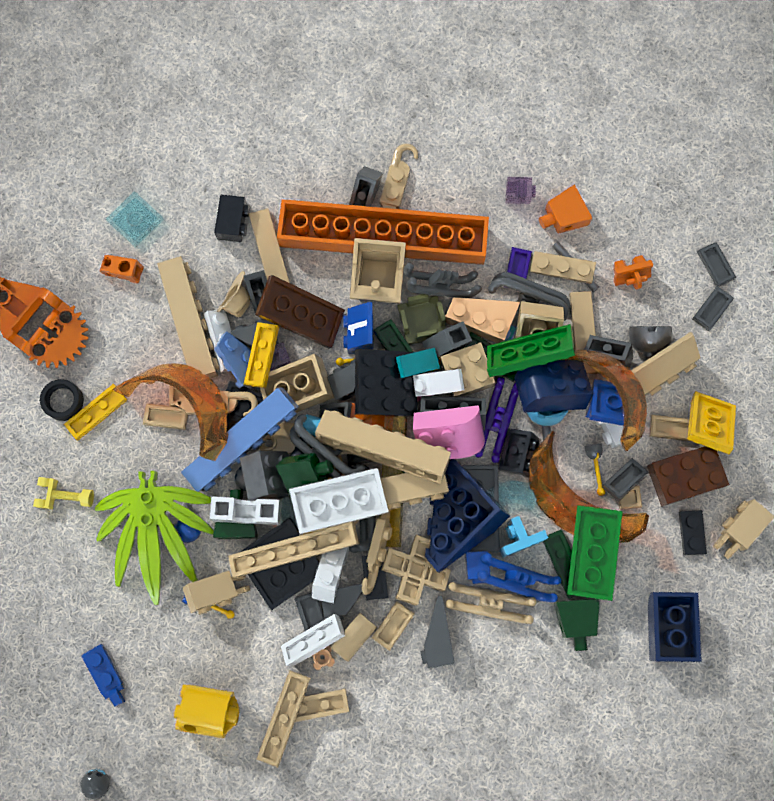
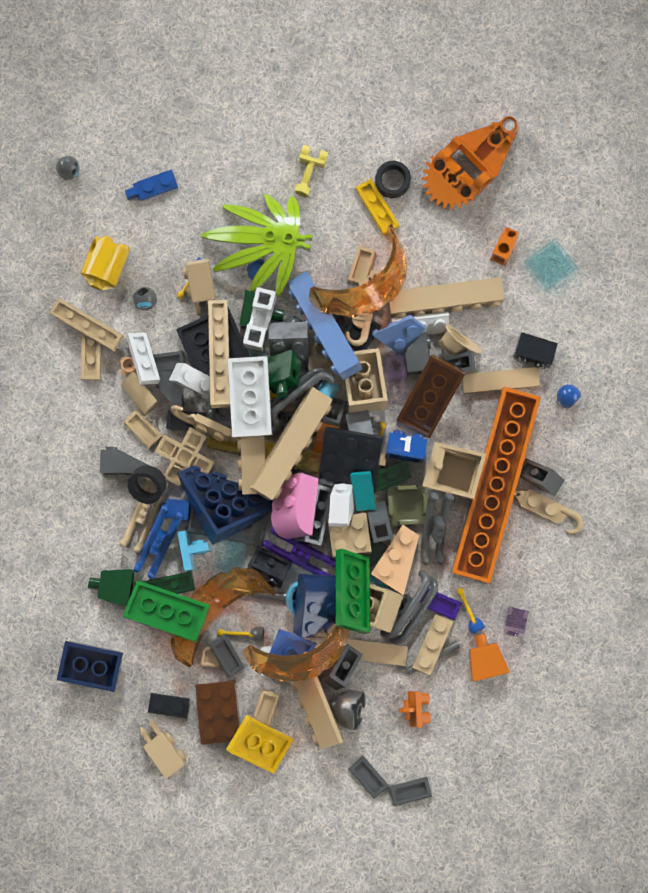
camera: 100 degrees right, 5 degrees up
(241, 654) = (145, 298): none -> dark grey piece
(261, 355) = (397, 355): yellow tile -> none
(274, 177) = (568, 395): none -> blue piece
(471, 604) = (139, 493): none -> black tyre
(532, 229) = (474, 624): none -> hinge

